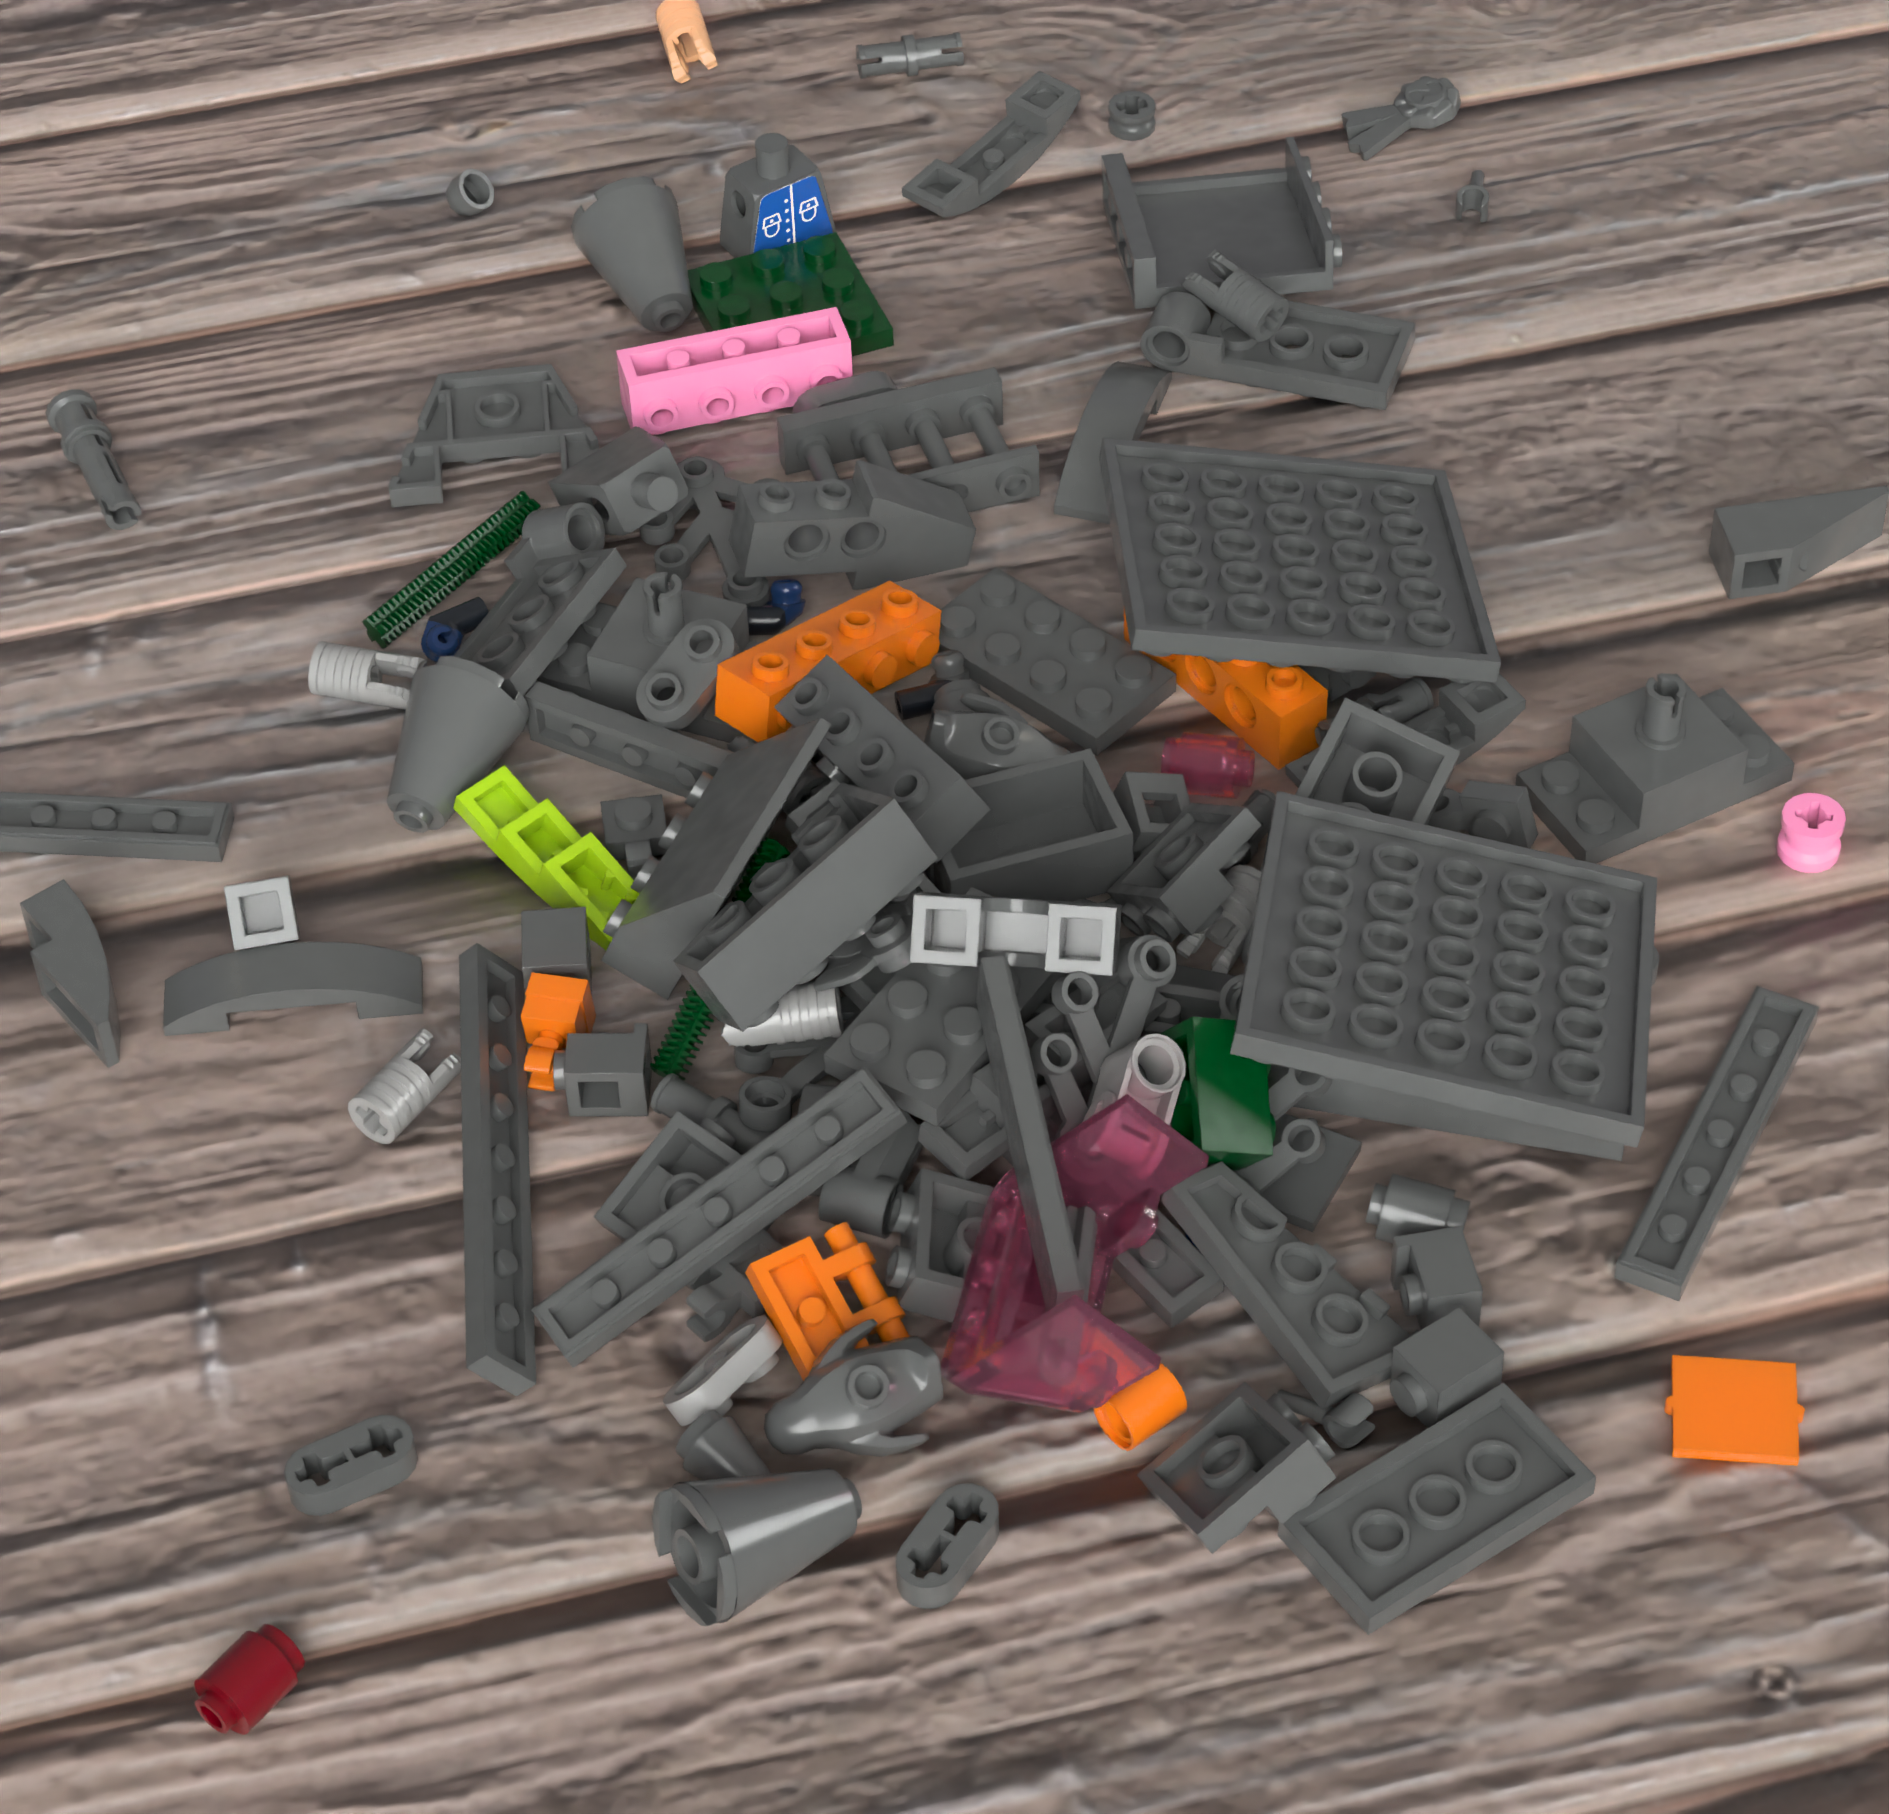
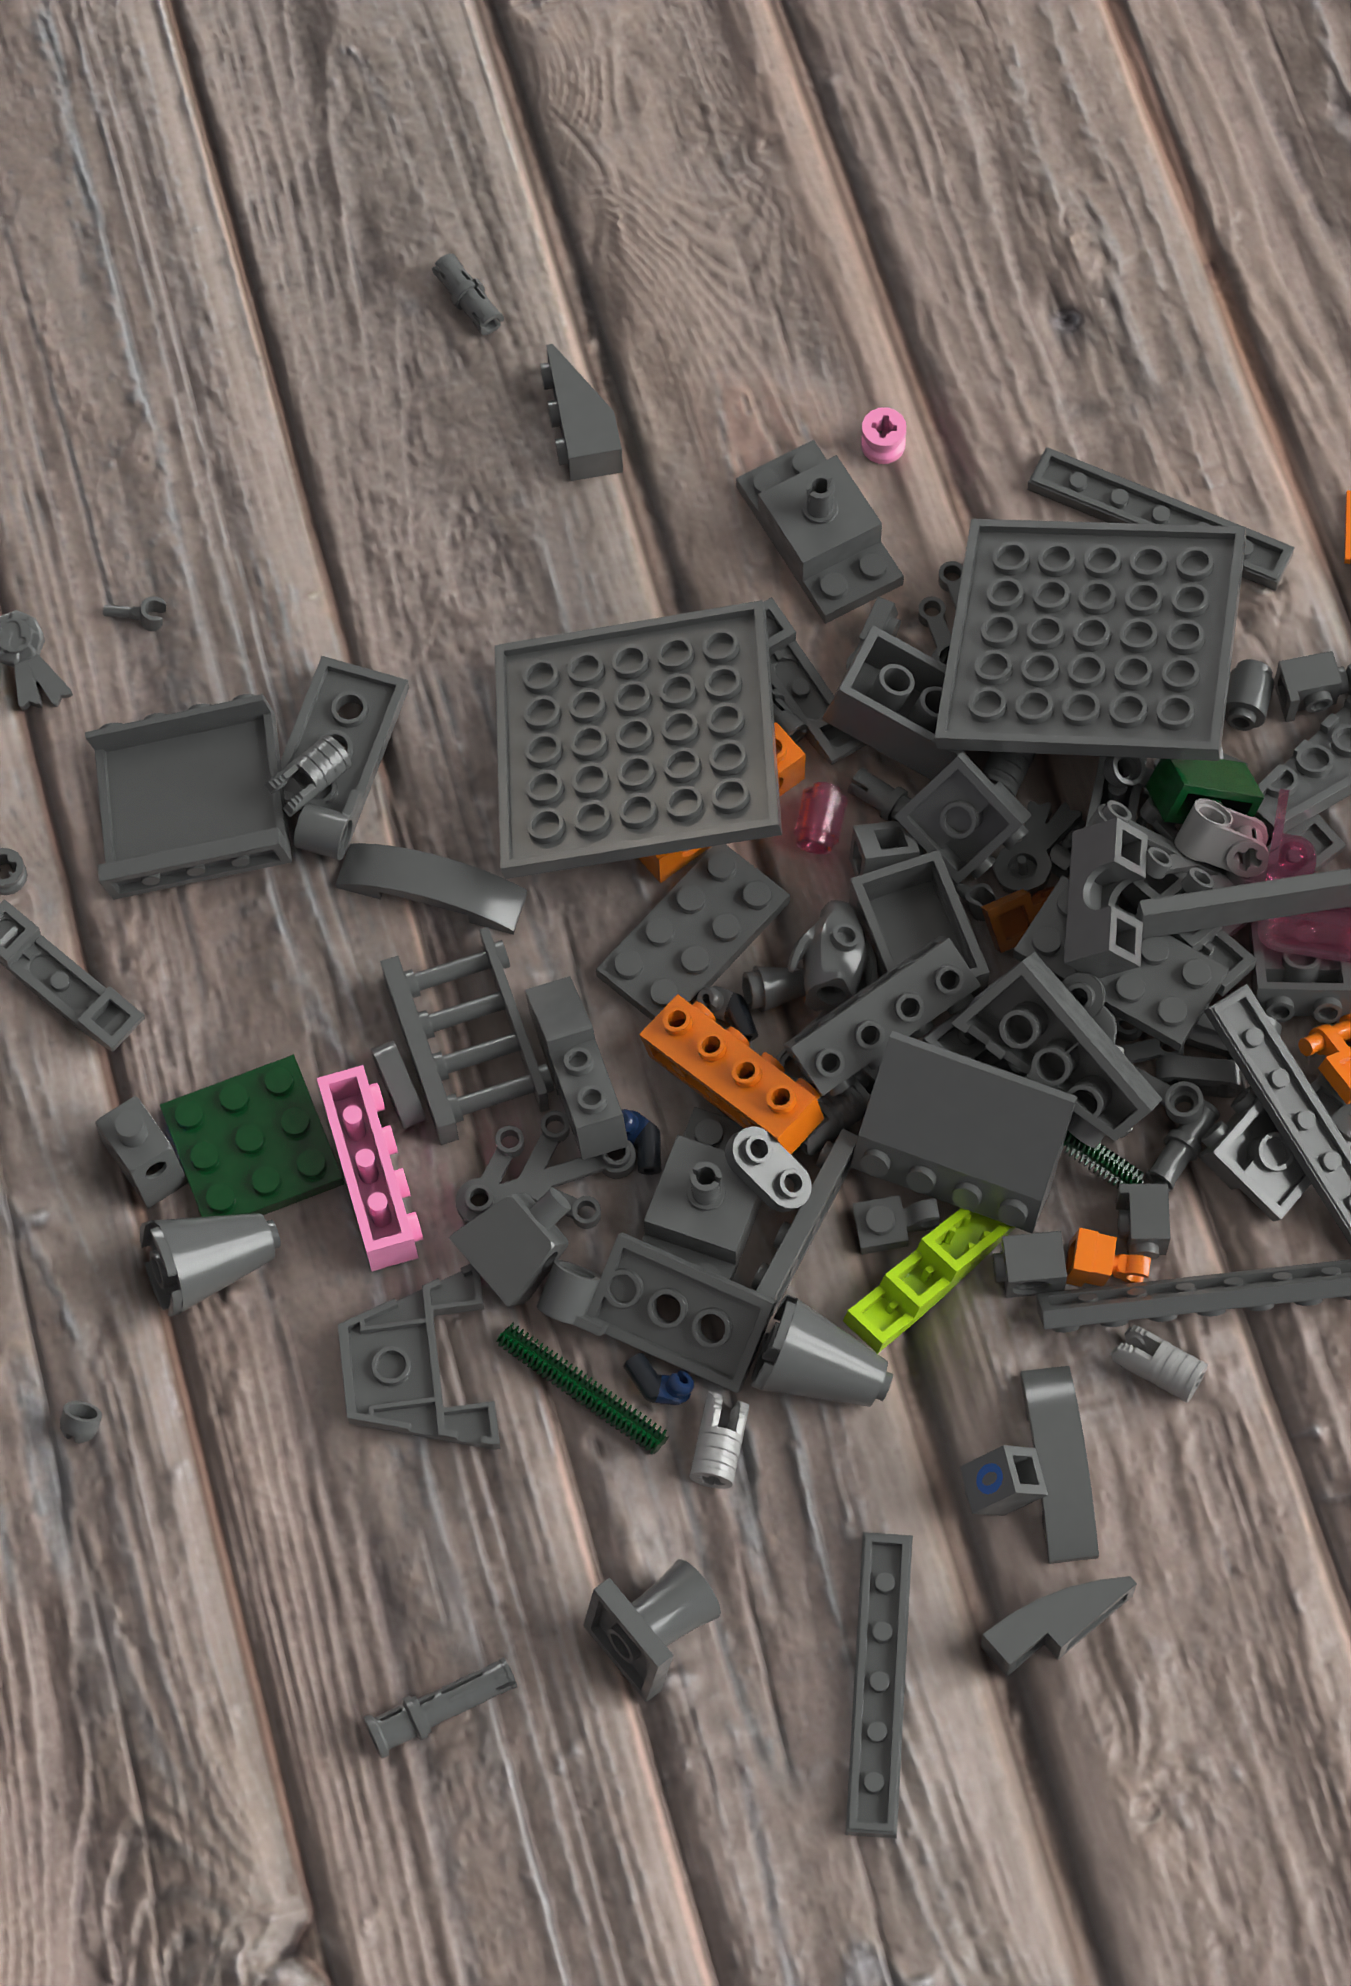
camera: 90 degrees left, 20 degrees up
(137, 585) = (640, 1631): none -> dark grey plant

